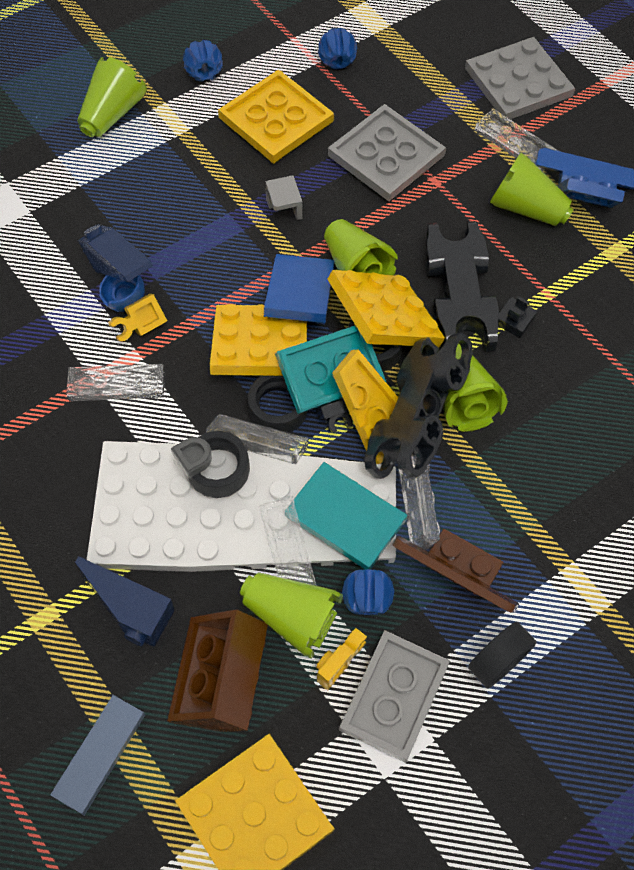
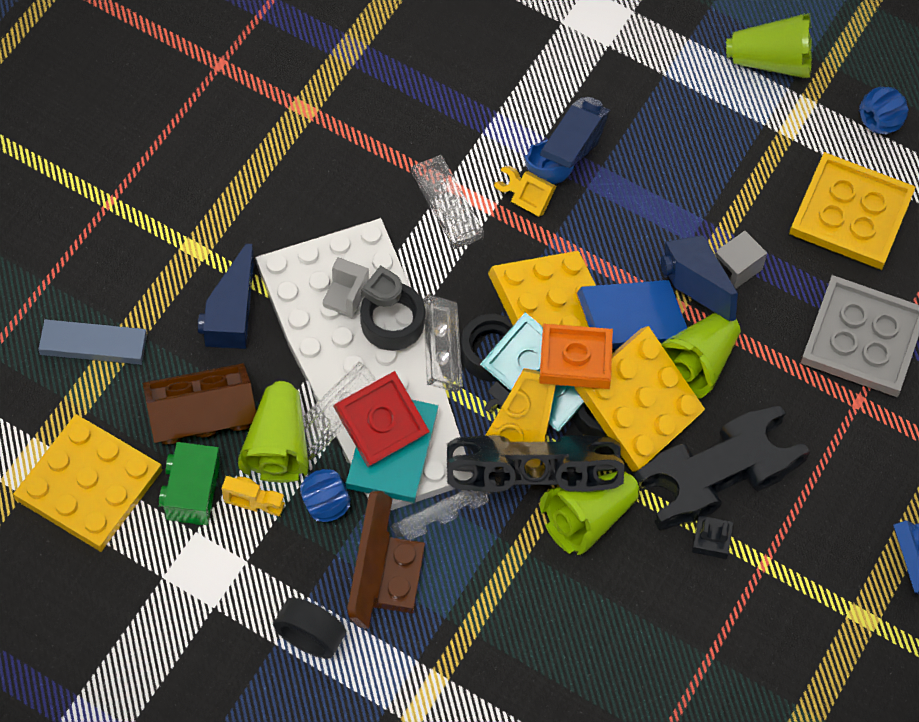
camera: 65 degrees right, 0 degrees up
(168, 491) = (346, 286): none -> light grey panel
(290, 225) = (700, 275): none -> dark blue slope
(303, 711) = (191, 483): none -> green brick
(325, 509) = (381, 418): none -> red tile
(344, 327) = (576, 356): none -> orange tile
(394, 696) = (238, 555): light grey plate -> none
(532, 193) = (879, 495): lime cone -> none

